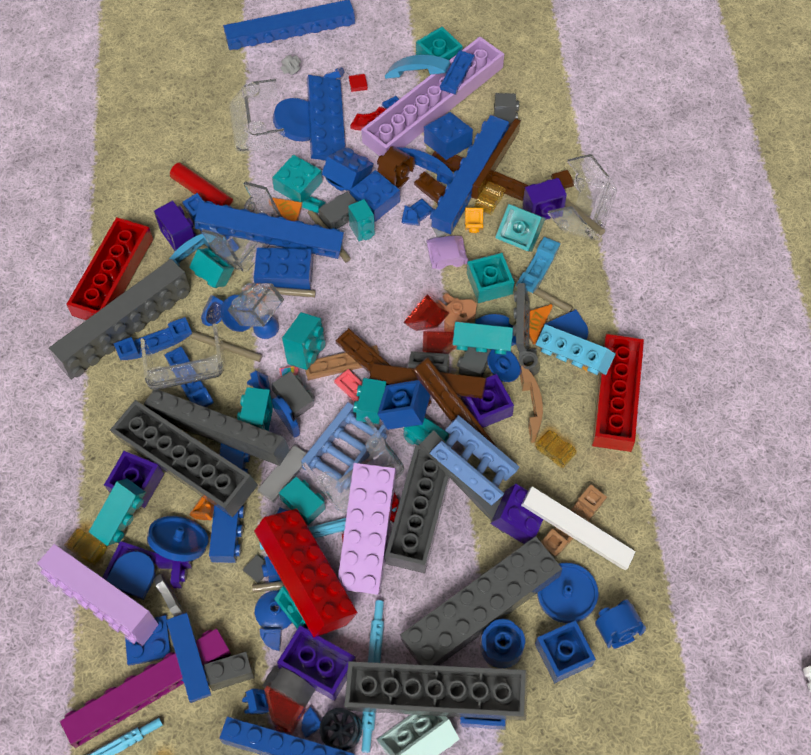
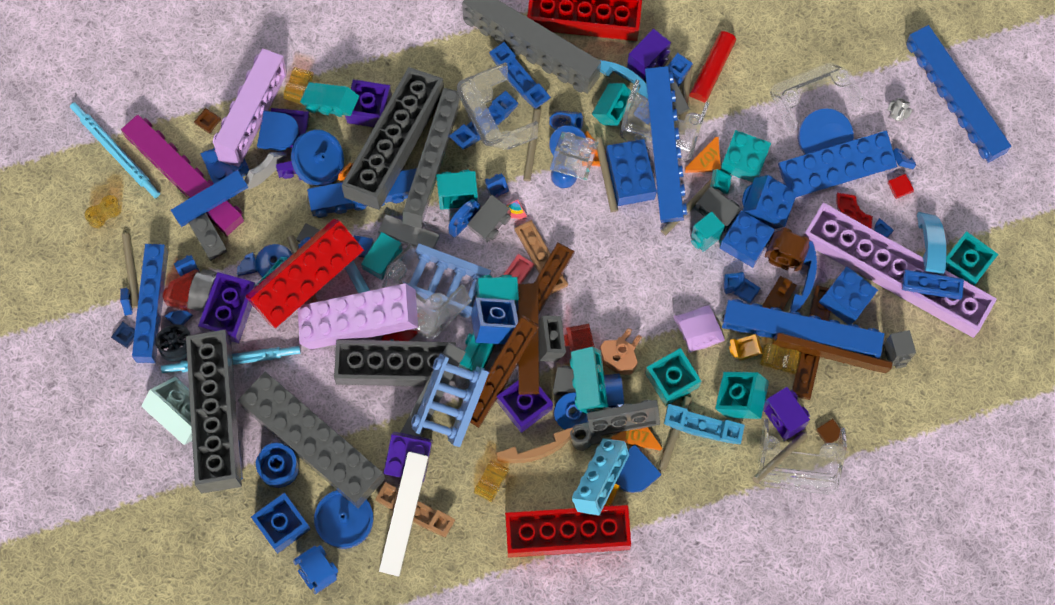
camera: 75 degrees right, 10 degrees up
(90, 650) = (207, 120): none -> reddish brown tile
(303, 341) = (546, 211): teal brick -> none
(427, 314) = (609, 322): clear red slope -> none

